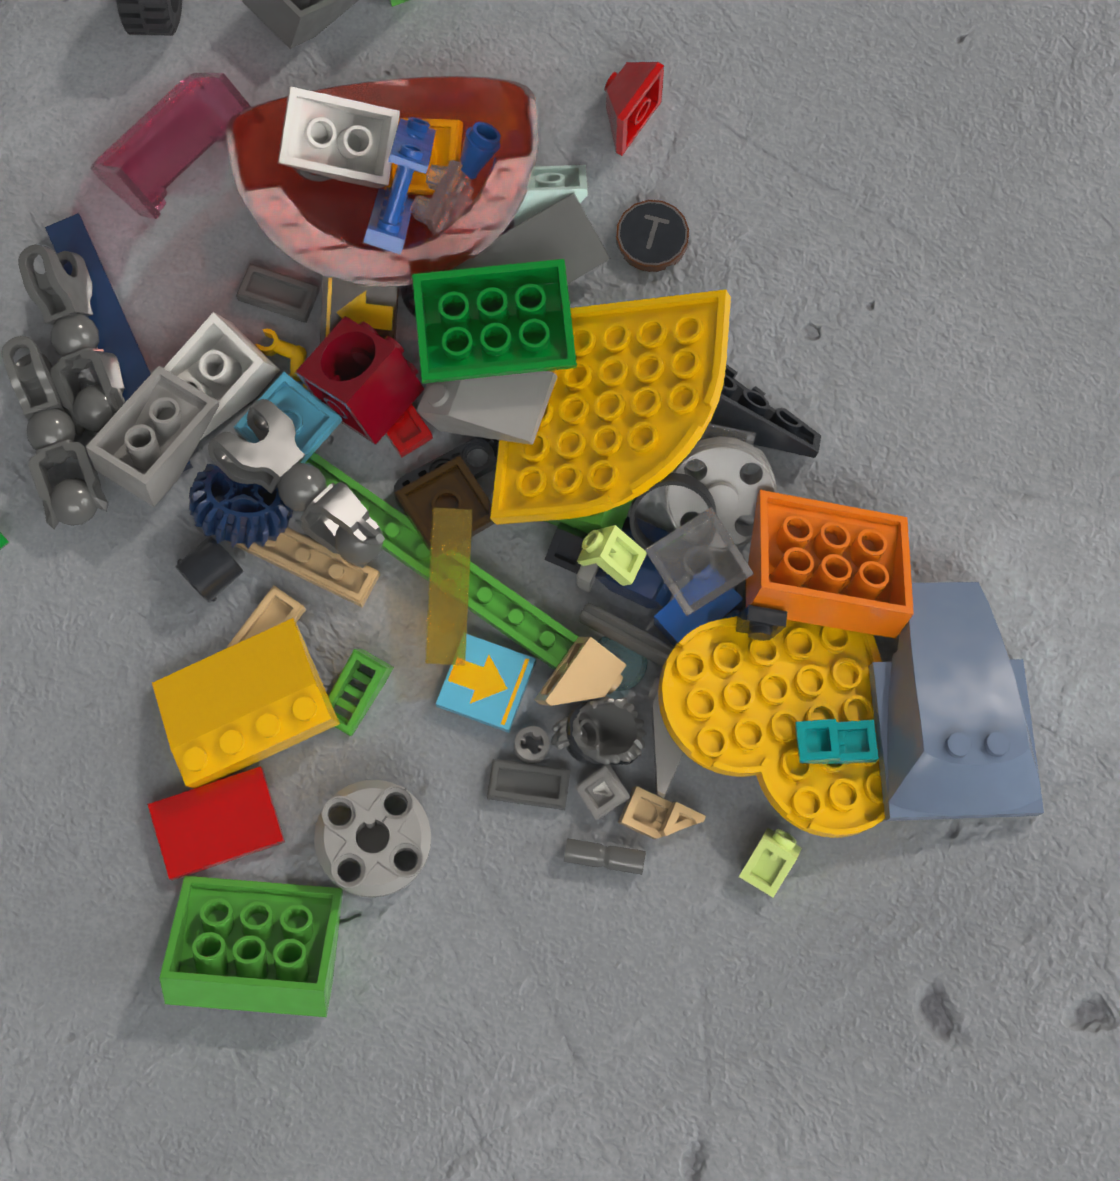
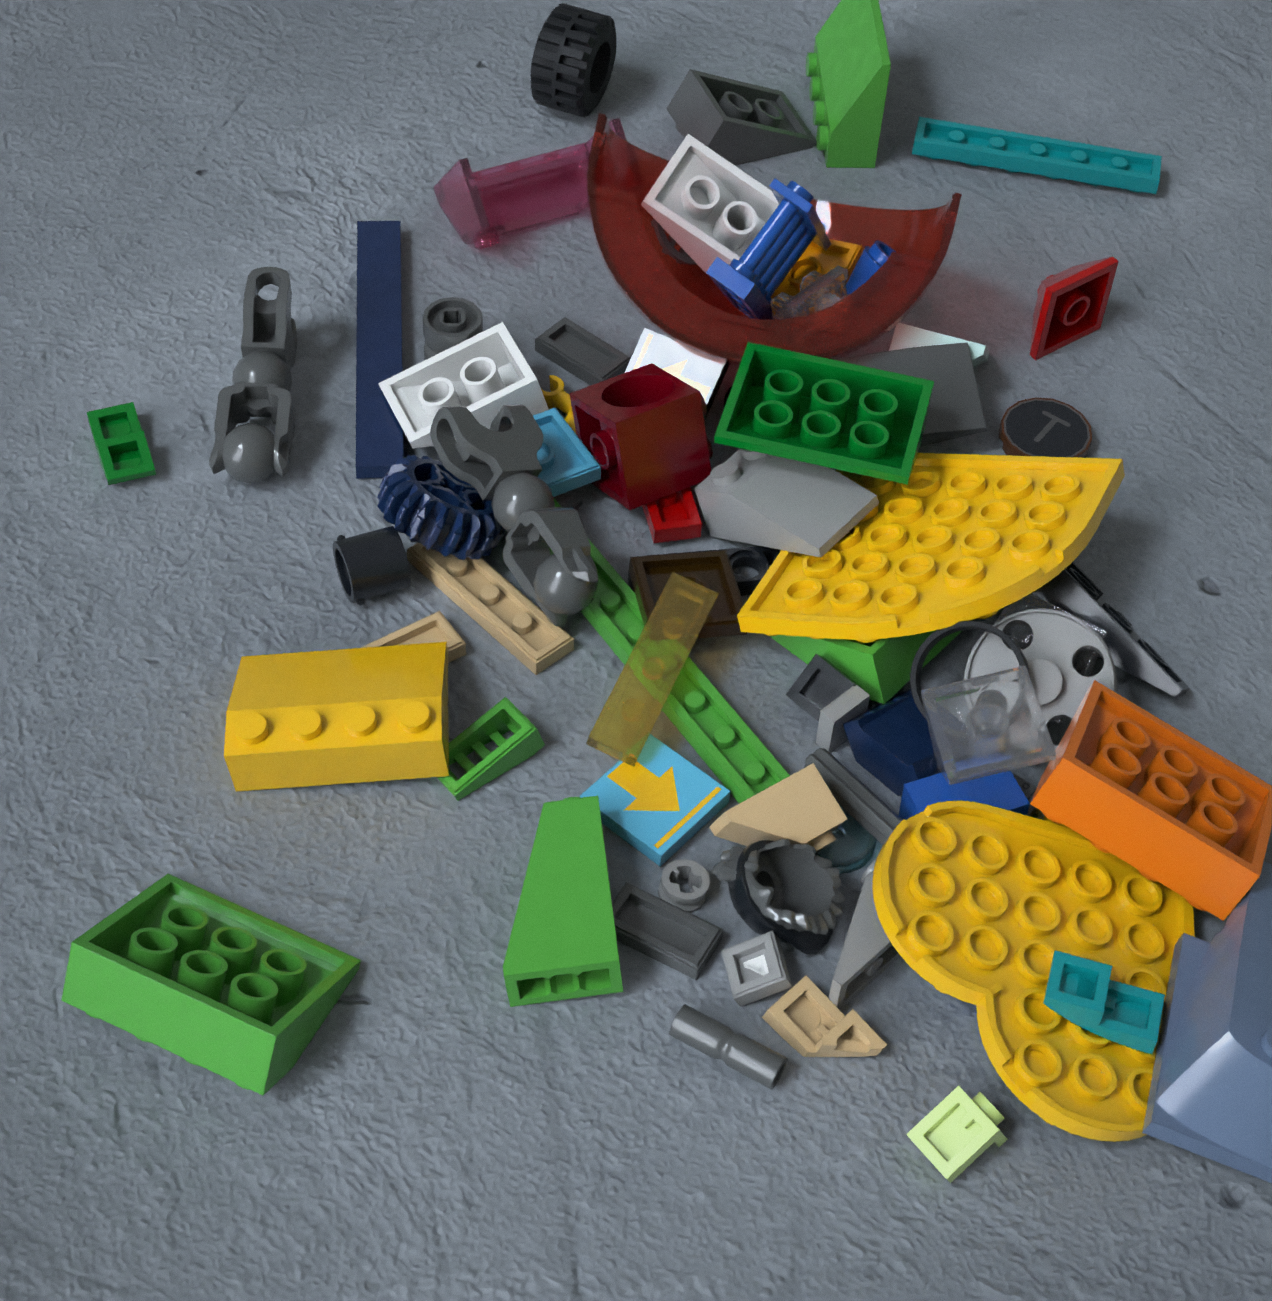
camera: 15 degrees right, 25 degrees down
(66, 305) = (343, 271): dark grey piece -> none
(152, 435) = (369, 415): light grey slope -> none
(172, 324) = (449, 323): none -> dark grey wheel
(216, 823) = (238, 831): red tile -> none
(372, 838) = (428, 910): light grey piece -> none
(464, 805) = (565, 918): none -> bright green slope
(613, 553) = (879, 694): yellowish green bracket -> none
(761, 622) = (1047, 819): black plate -> none

